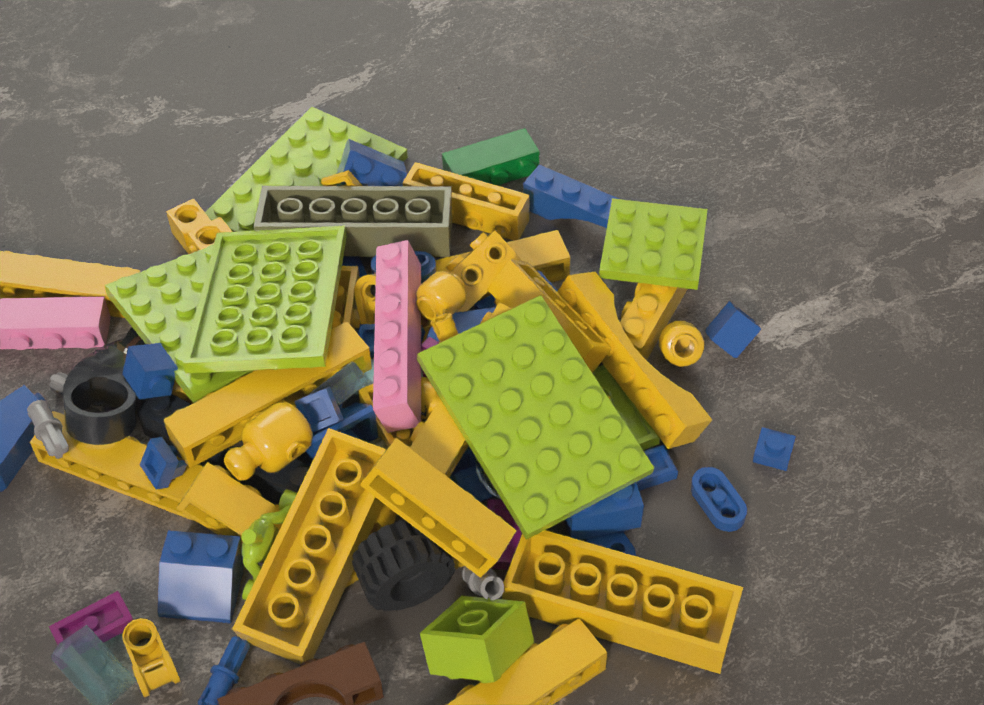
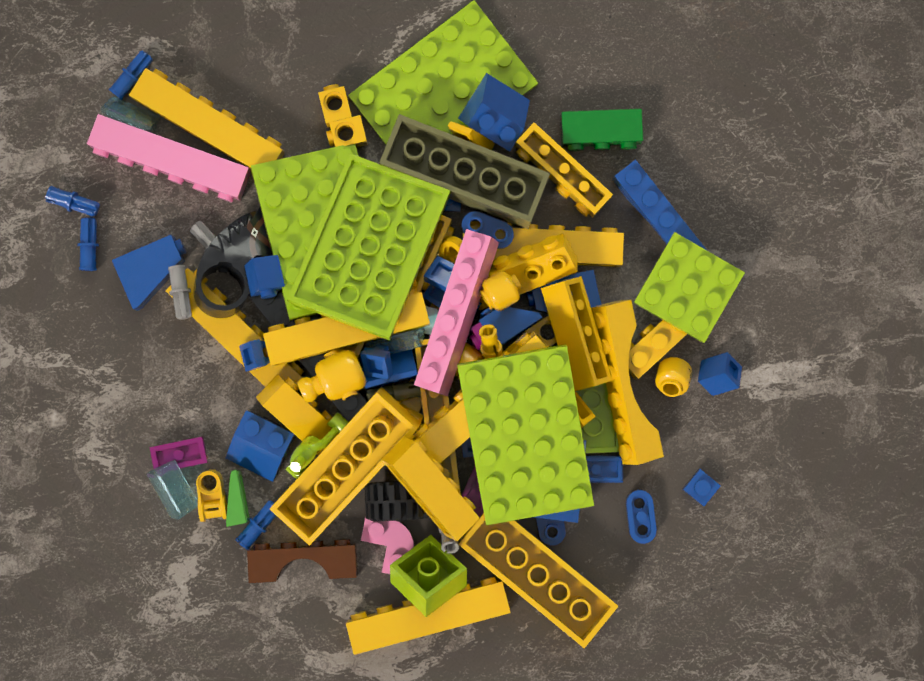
camera: 15 degrees right, 35 degrees up
(190, 664) = (237, 503): none -> bright green slope
(362, 314) = (439, 273): none -> blue plate
(402, 630) = (390, 534): none -> bright pink plate

